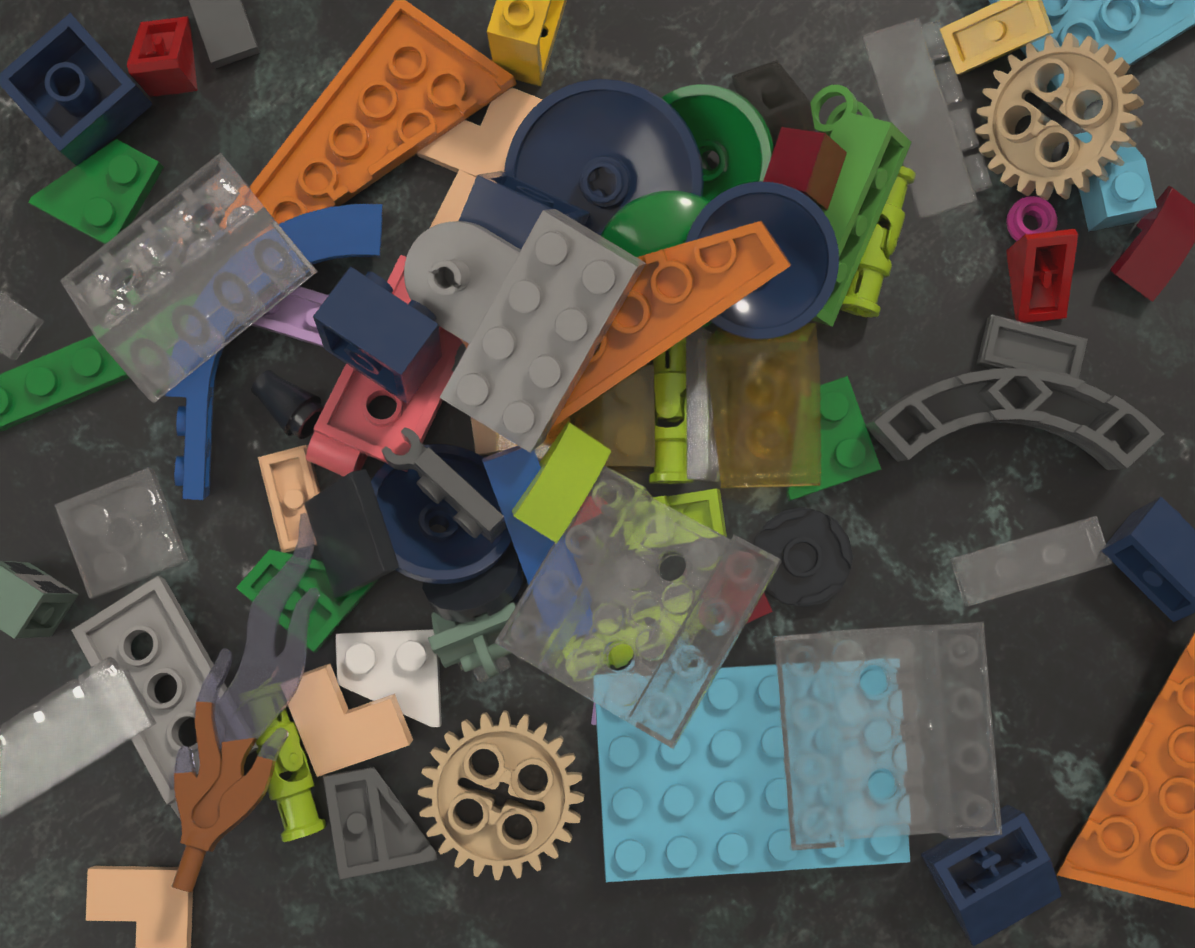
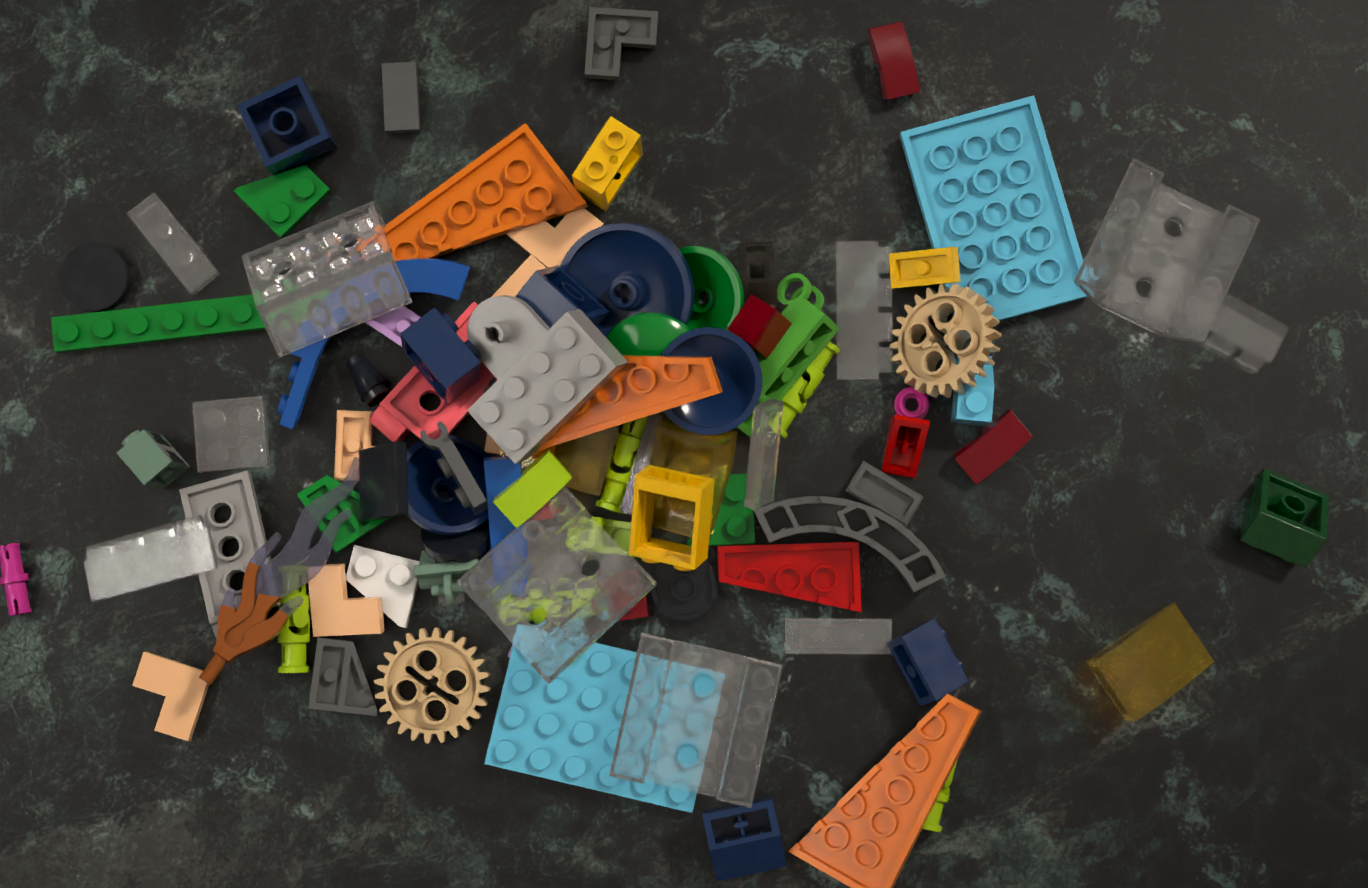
camera: 20 degrees right, 0 degrees up
(163, 57) = (354, 116): red slope -> none
(753, 418) = (677, 485): none -> yellow window
(861, 341) = (763, 453): none -> clear tile
(961, 486) = (801, 571): none -> red wing

